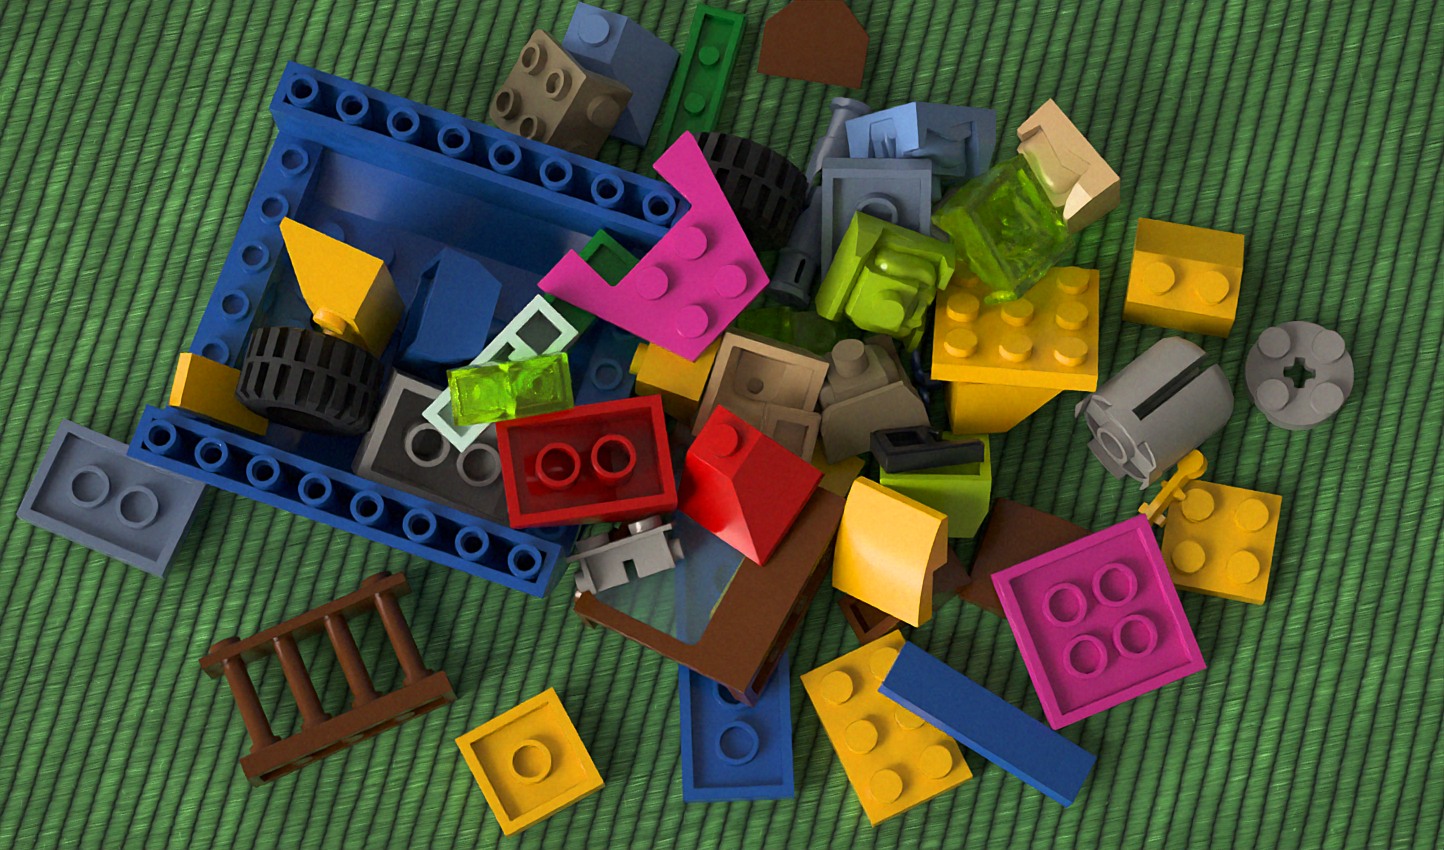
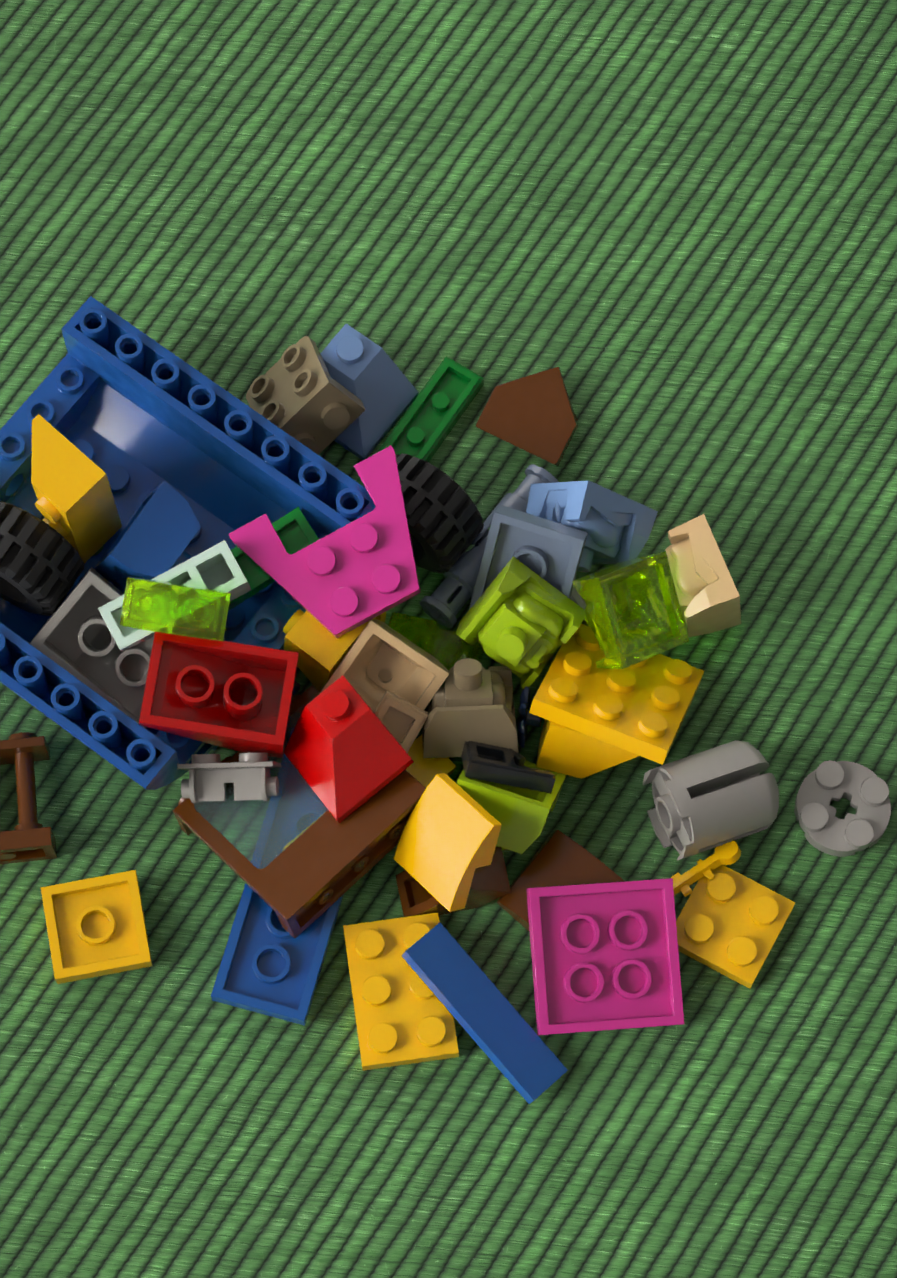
camera: 10 degrees right, 5 degrees down
(1184, 278) = (771, 698): yellow slope -> none

